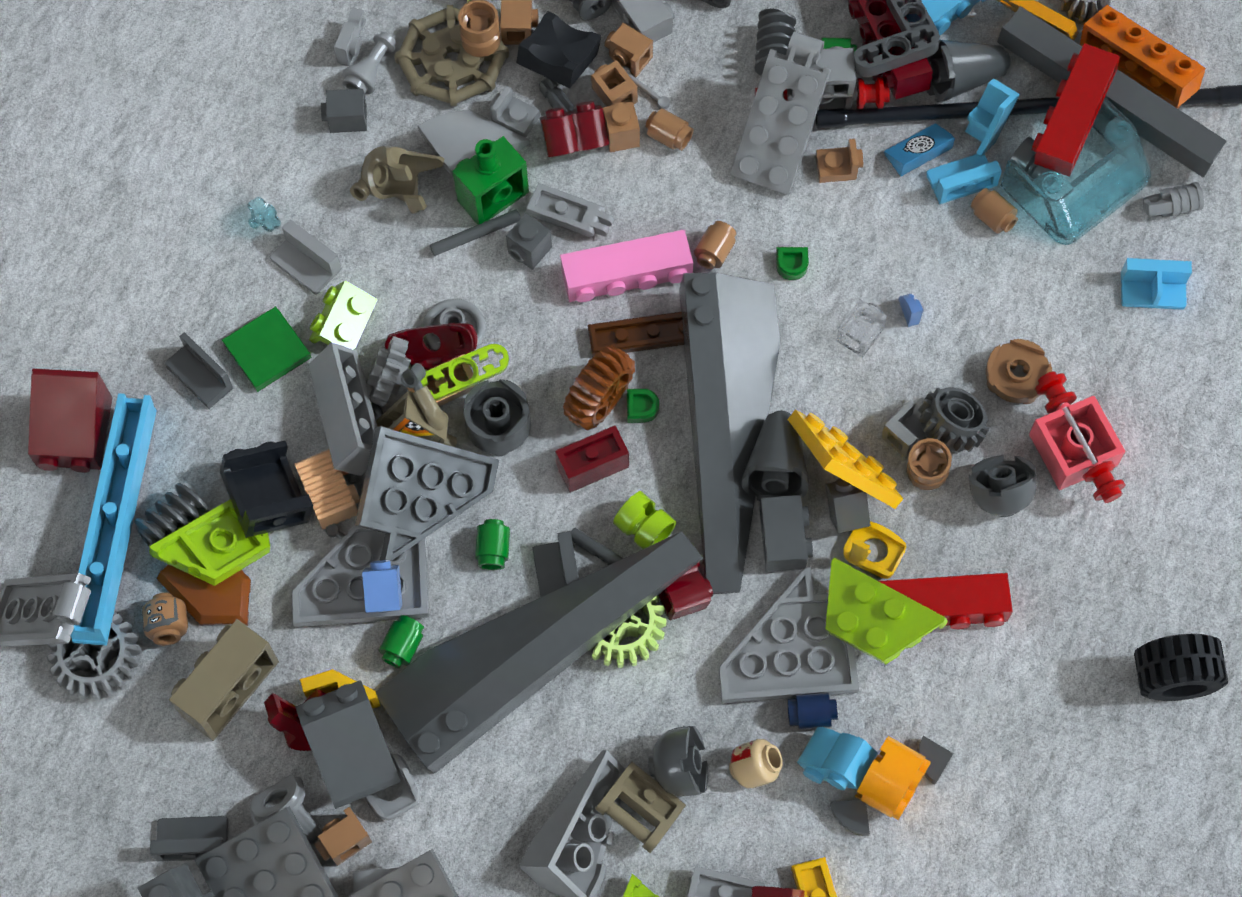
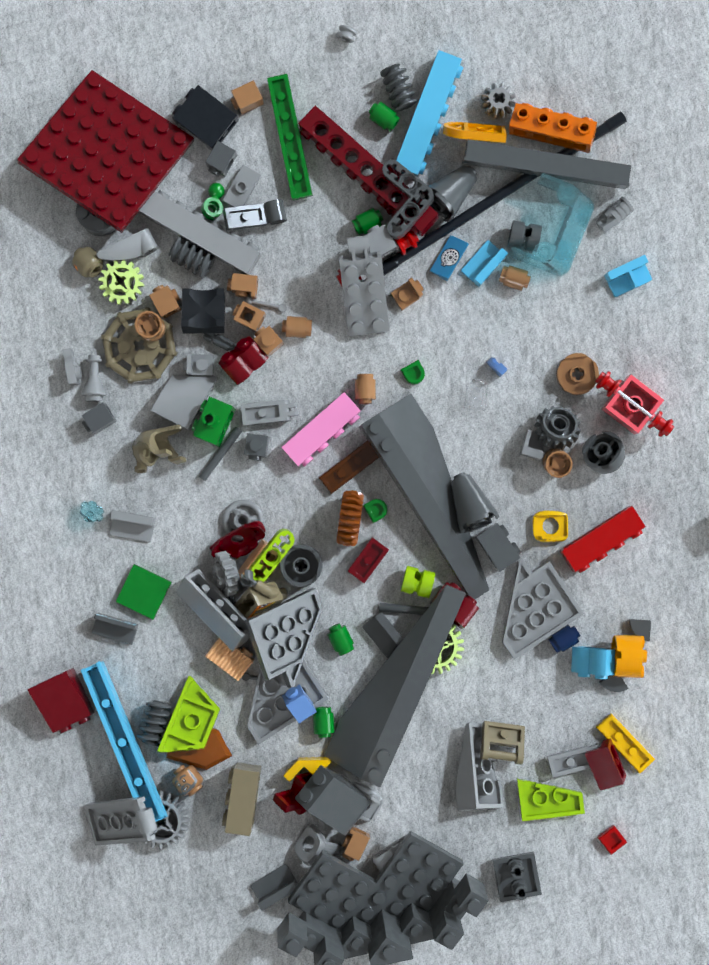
camera: 30 degrees left, 20 degrees up
(264, 489) = (196, 679): black panel -> none
(343, 315) = (176, 550): bracket -> none
(678, 762) = (510, 708): dark grey cylinder -> none
(755, 763) = (550, 685): tan head -> none
(773, 33) = (329, 234): dark grey piece -> none
(843, 459) = (510, 489): yellow plate -> none
(847, 506) = (524, 511): dark grey brick -> none
(875, 615) = (573, 571): lime wing -> none
(991, 114) = (484, 218): medium azure panel -> none
(1076, 109) = (536, 195): red brick -> none

